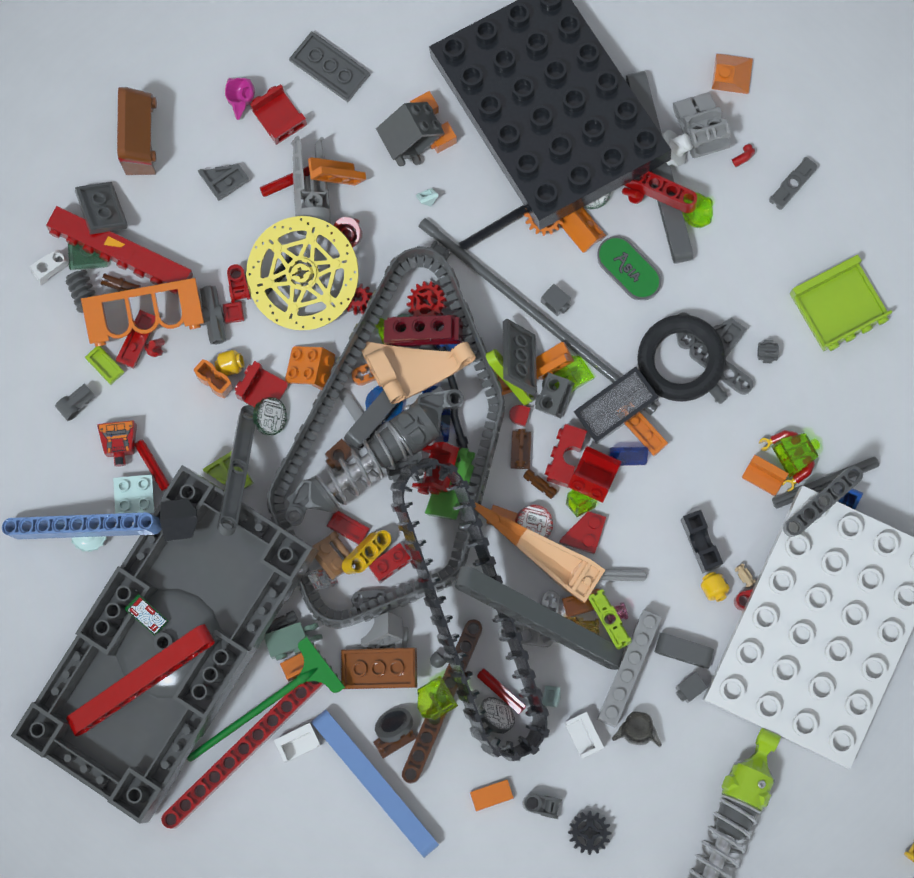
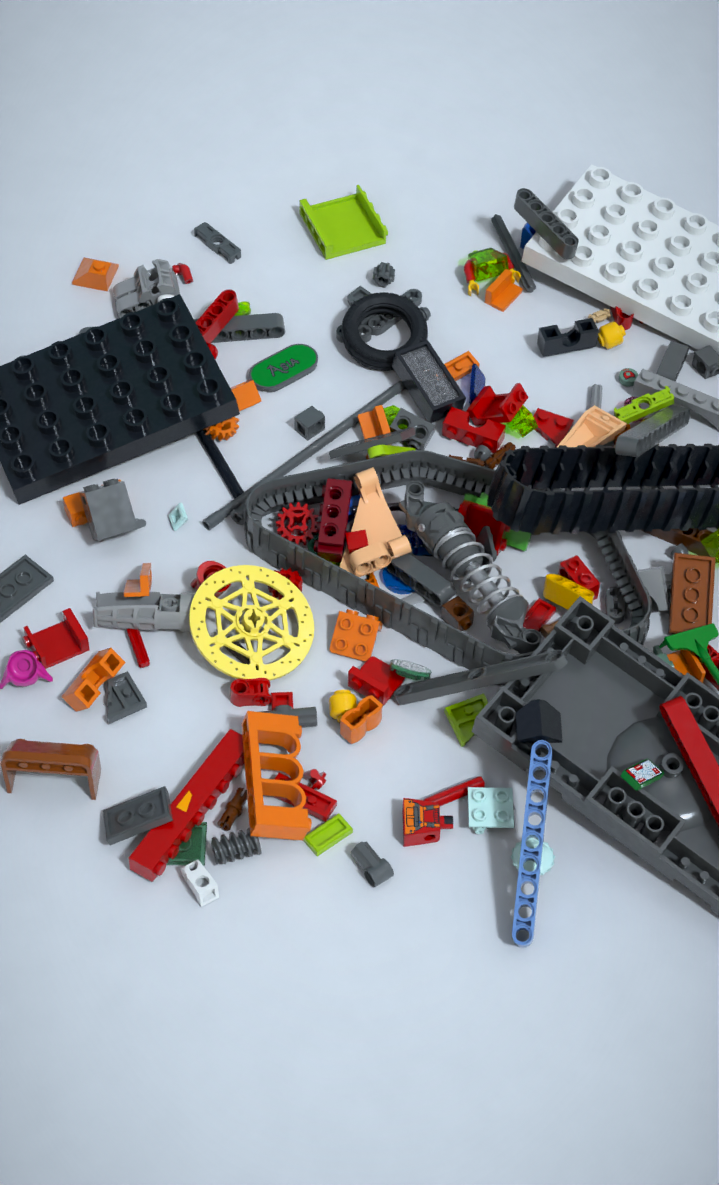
camera: 85 degrees left, 25 degrees down
(223, 144) = (85, 687): none -> orange arch
(401, 354) = (356, 540): none -> red tile
(538, 468) = (482, 452): none -> dark grey hinge
(663, 607) = (627, 377): none -> sand green tile

